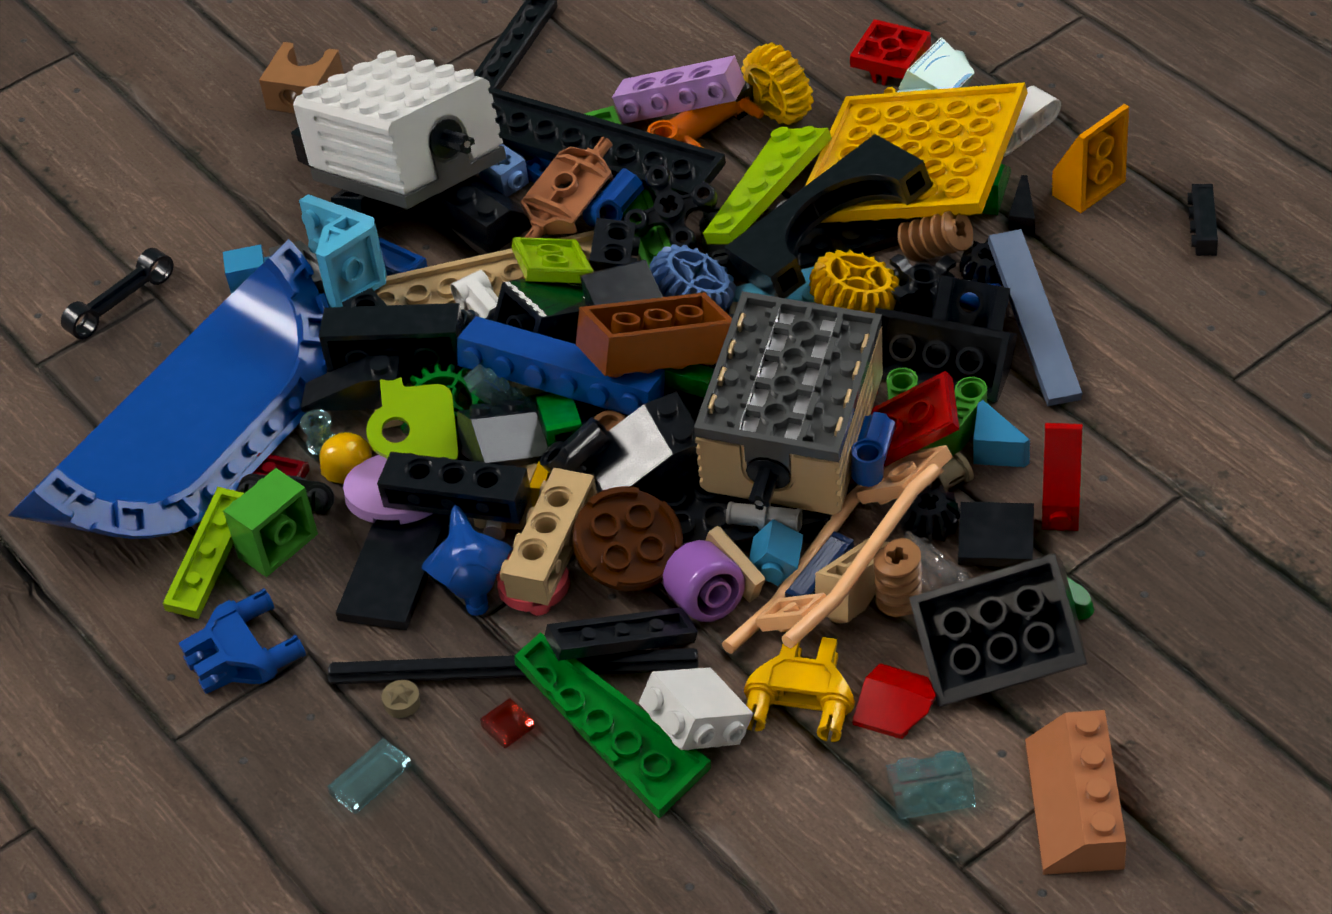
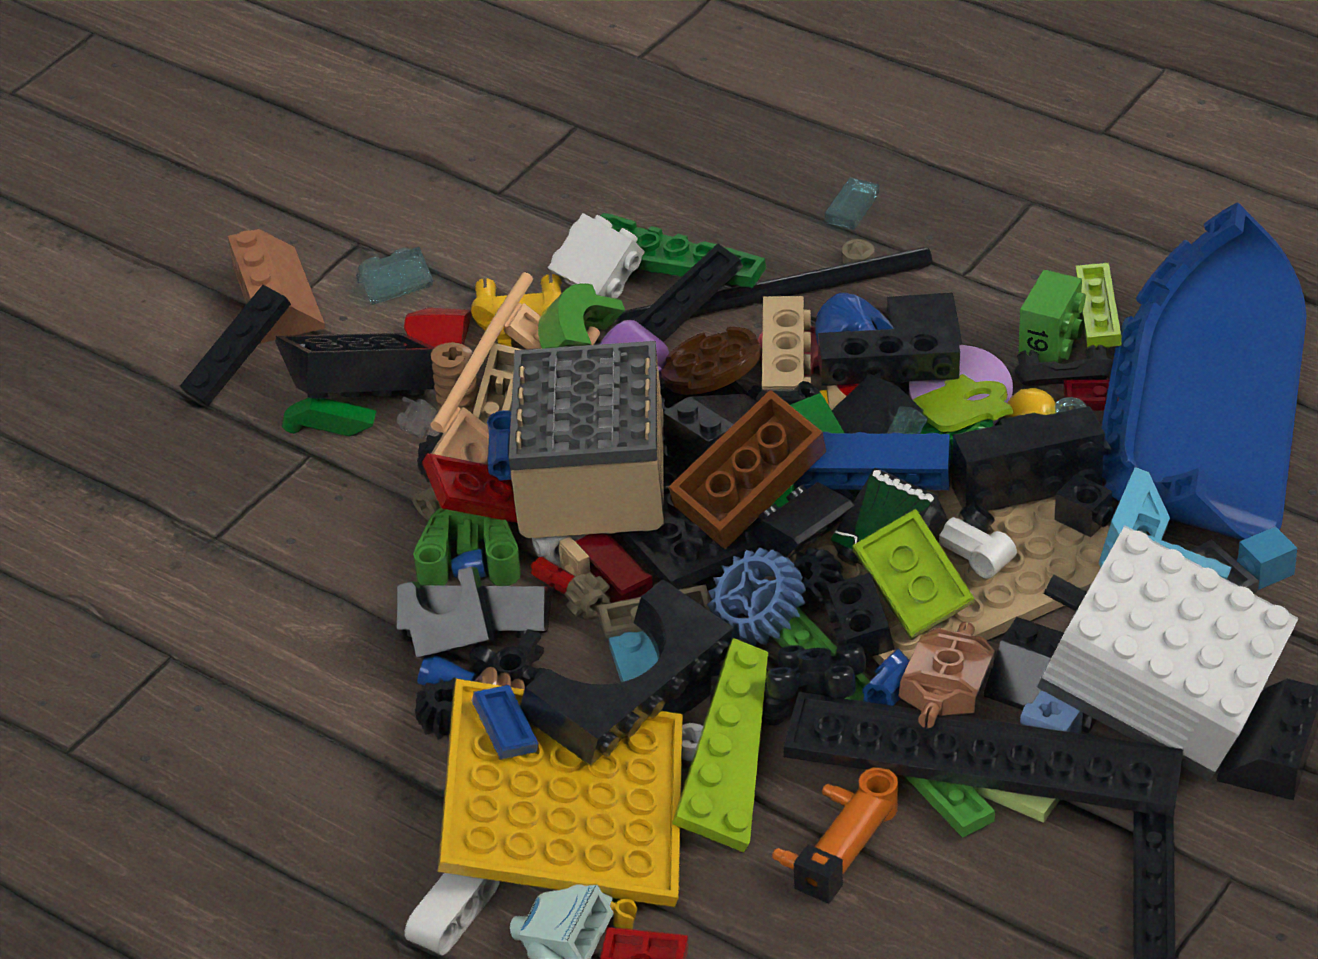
camera: 160 degrees right, 5 degrees down
(229, 651) = (1017, 248): blue connector -> none
(507, 723) = (770, 252): clear red tile -> none
(679, 89) = (879, 826): lavender brick -> none
(753, 619) = (574, 309): none -> bright green arch
(778, 83) = (762, 867): yellow gear -> none
(853, 282) = (579, 630): yellow gear -> none
(946, 172) = (504, 722): none -> blue tile
(995, 534) = (380, 456): black tile -> none
(998, 440) = (393, 531): dark azure slope -> none
(1022, 211) = (424, 790): black piece -> none
(1035, 318) = (384, 648): sand blue tile -> none
(1062, 476) = (321, 475): red slope -> none
(1093, 162) = (346, 816): light orange slope -> none
(1132, 684) = (235, 345): none -> black plate
(1204, 219) = (214, 819): black piece -> none

